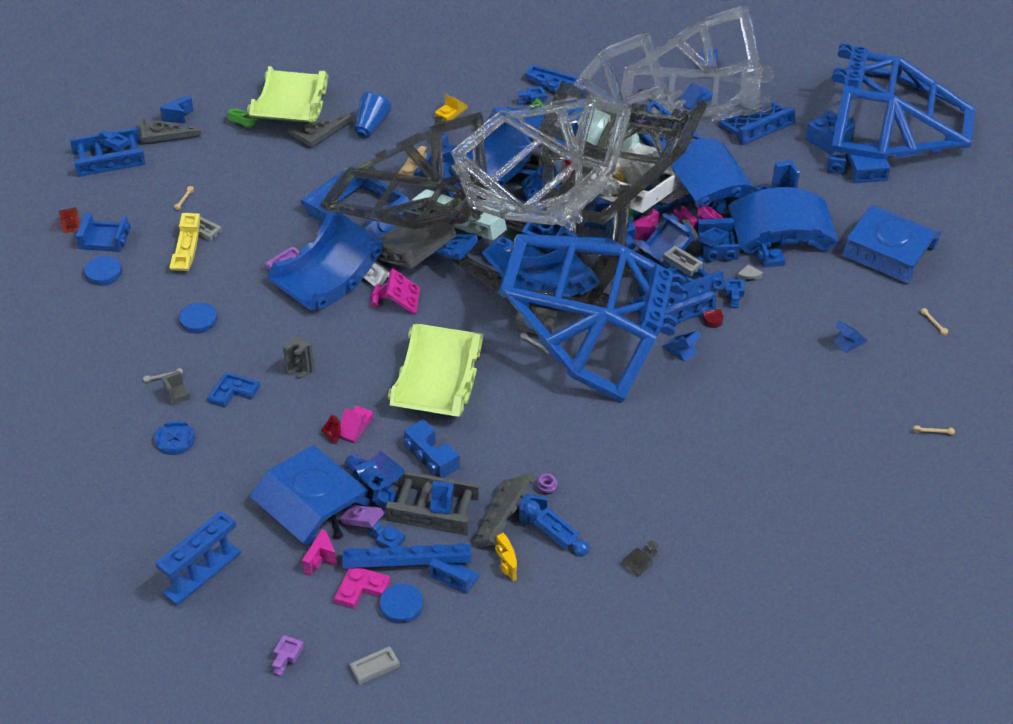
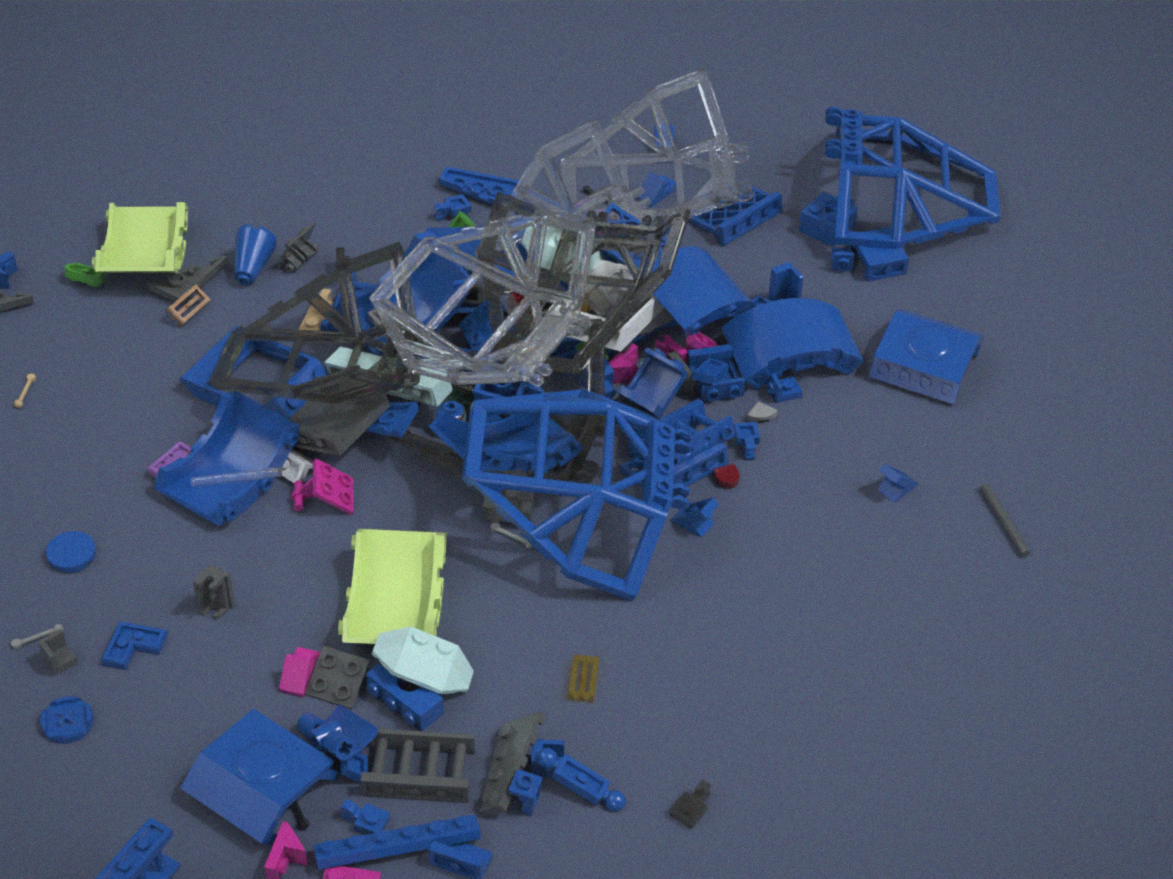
camera: 10 degrees left, 0 degrees up
(186, 242) = (39, 451): light yellow slope -> none
(206, 233) = (53, 430): light grey tile -> none
(307, 154) = (177, 315): none -> medium nougat tile
(330, 276) = (236, 476): none -> clear bar
(332, 428) = (272, 682): dark red tile -> none
(361, 516) = (330, 796): medium lavender plate -> none
(382, 430) = (337, 677): none -> dark grey hinge
(407, 115) = (298, 250): none -> dark grey hinge
(442, 497) = (431, 758): blue panel -> none
(450, 425) = (424, 660): none -> light aqua wedge
(451, 108) = (352, 235): yellow slope -> none
(507, 554) = (528, 830): yellow slope -> none
(513, 528) = (528, 788): none -> blue bracket
(547, 483) = (560, 715): medium lavender plate -> none
(562, 465) = (582, 694): none -> clear yellow tile
(680, 262) = (676, 409): light grey tile -> none
(718, 205) = (710, 329): blue plate -> none
(917, 429) = (1038, 589): tan hinge -> none
(933, 375) = (1005, 520): none -> dark grey bar
(943, 331) = (1007, 461): tan hinge -> none

